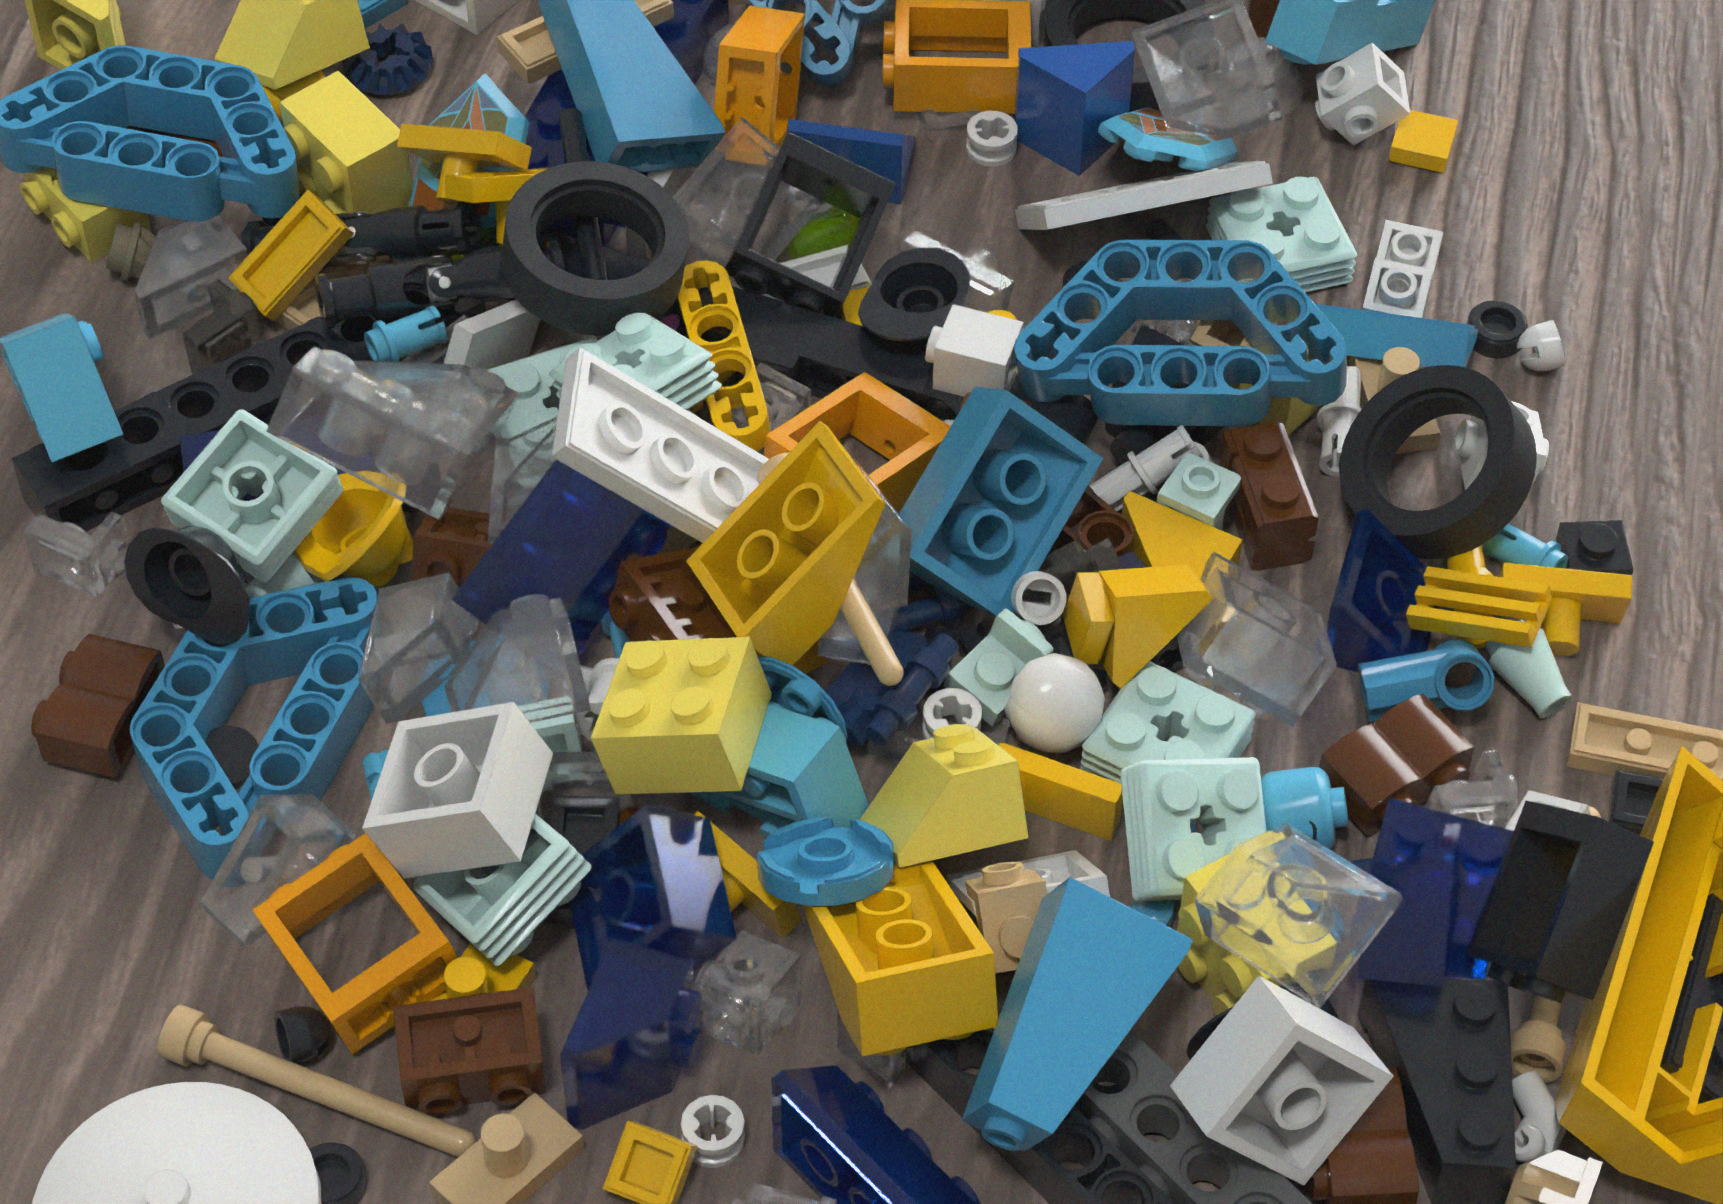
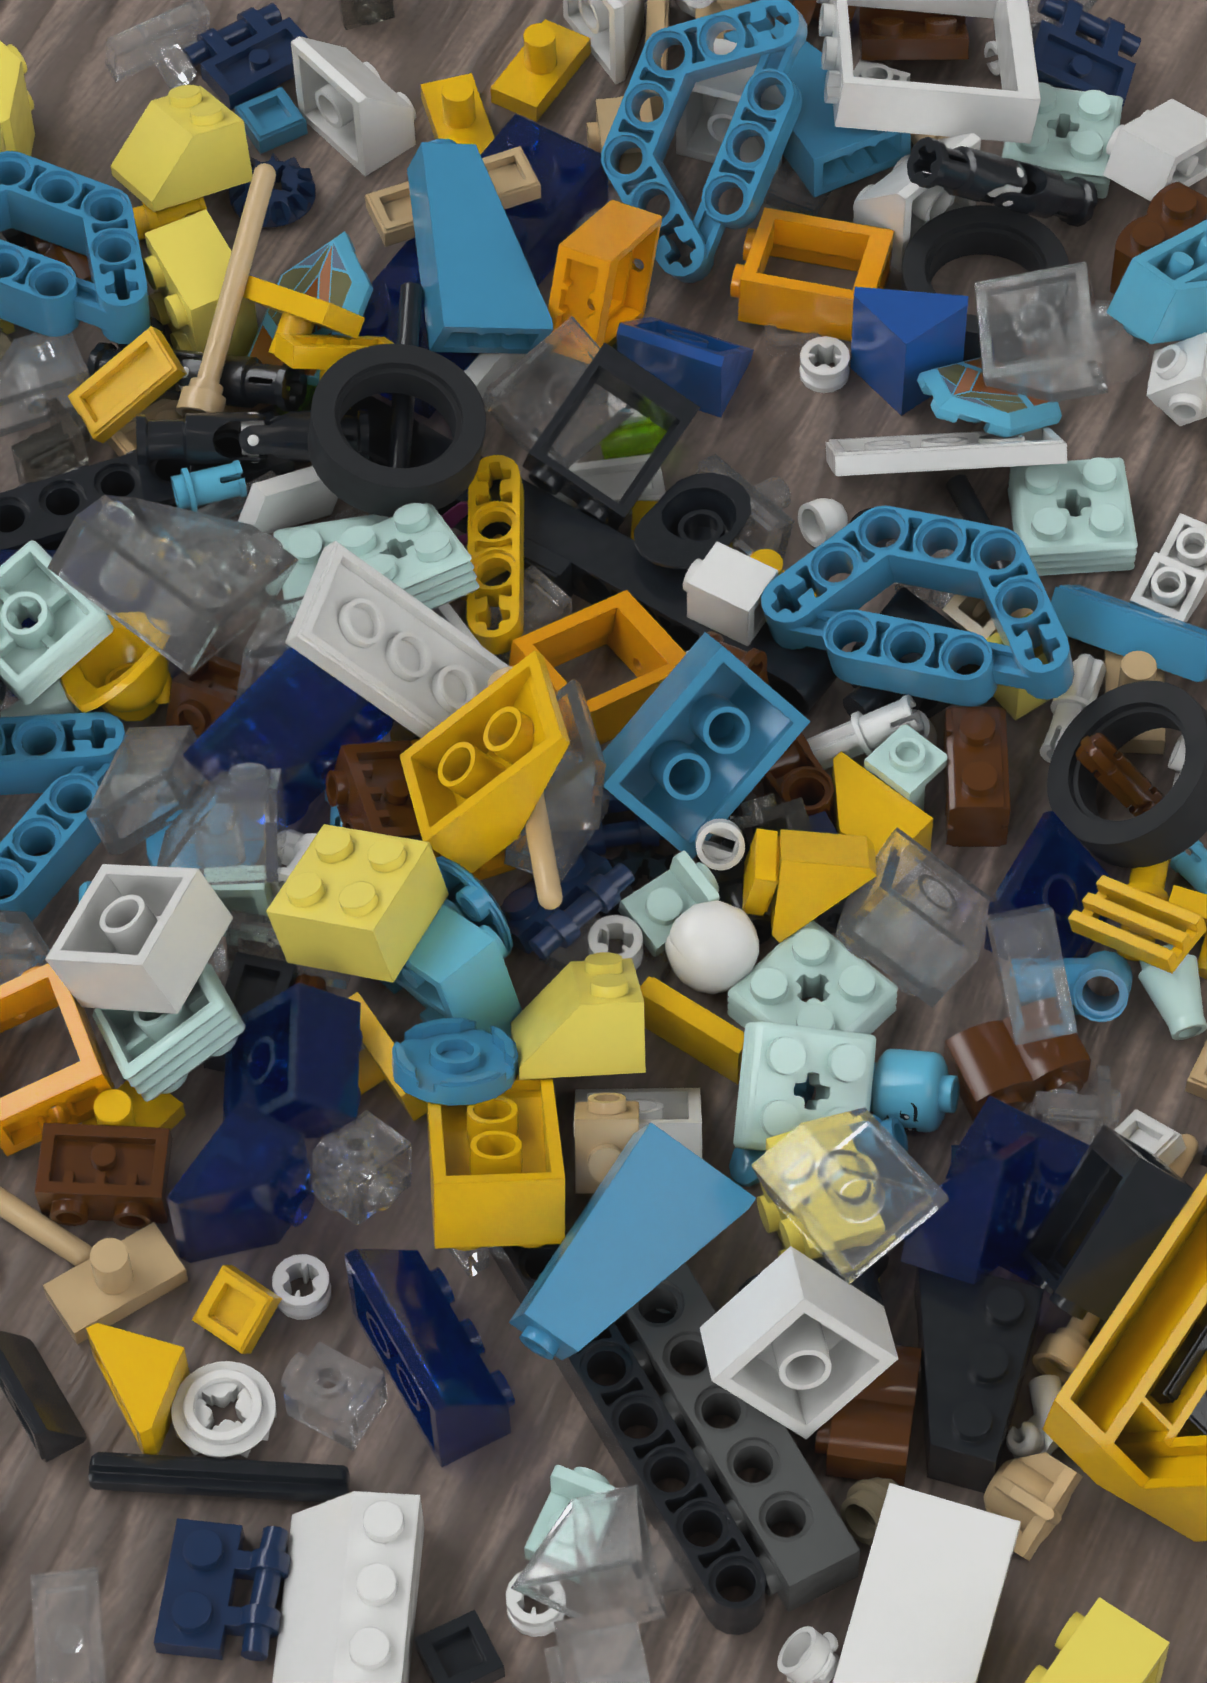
camera: 15 degrees right, 5 degrees up
(379, 243) = (204, 391): none -> tan piece
(1035, 282) = (821, 520): none -> white hinge
(1396, 667) = (1031, 973): none -> clear slope
(1412, 468) = (1117, 774): none -> reddish brown axle

